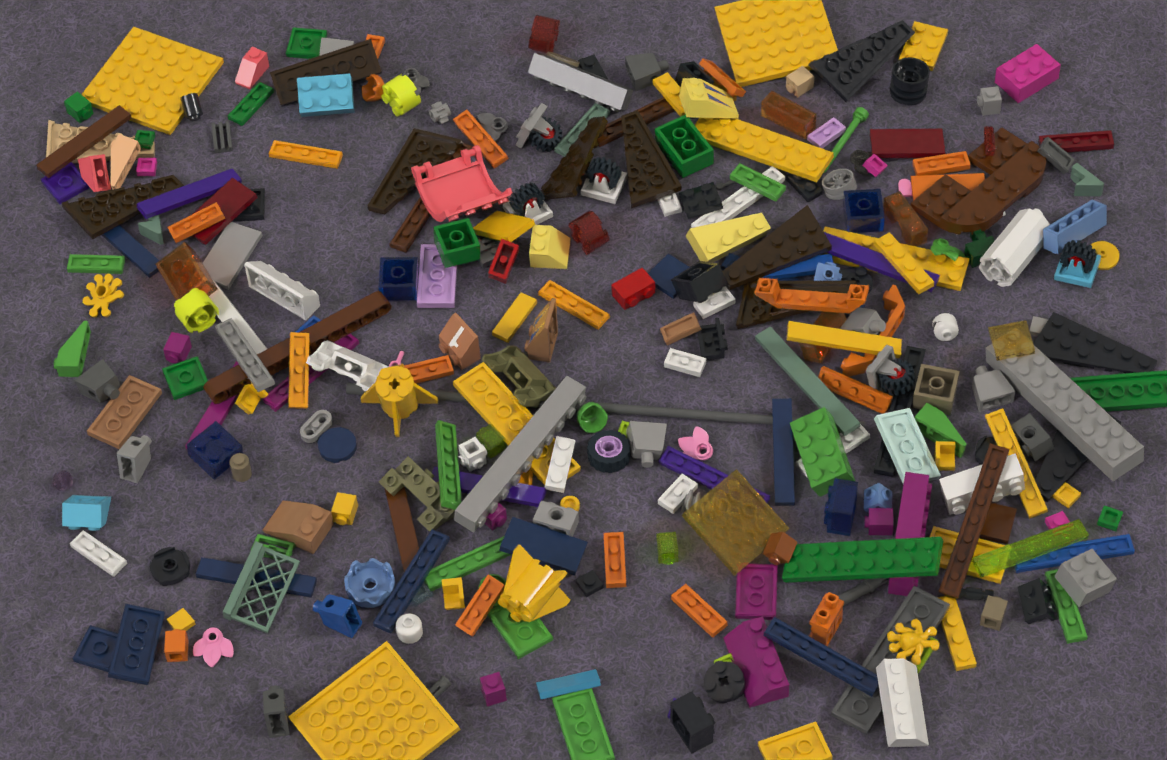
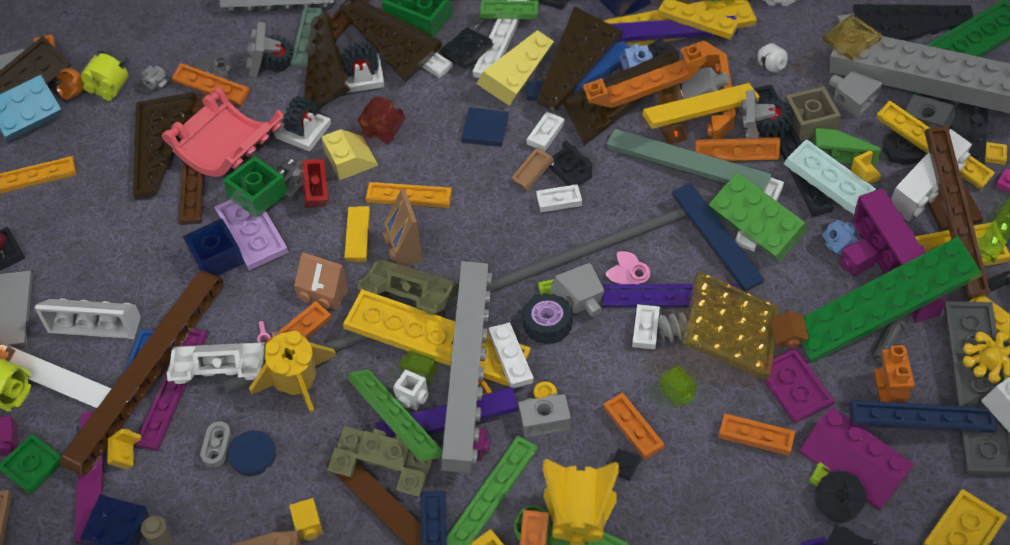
camera: 30 degrees left, 0 degrees up
(244, 355) = (91, 405): light grey tile -> none
(298, 370) = (162, 393): light orange tile -> none
(503, 226) = (293, 150): yellow tile -> none
(545, 545) = (563, 444): dark blue tile -> none
(592, 417) = (507, 293): bright green hair -> none
(633, 288) = (459, 153): red brick -> none
(699, 281) = (522, 116): black brick -> none
(841, 507) = (818, 260): clear blue brick -> none

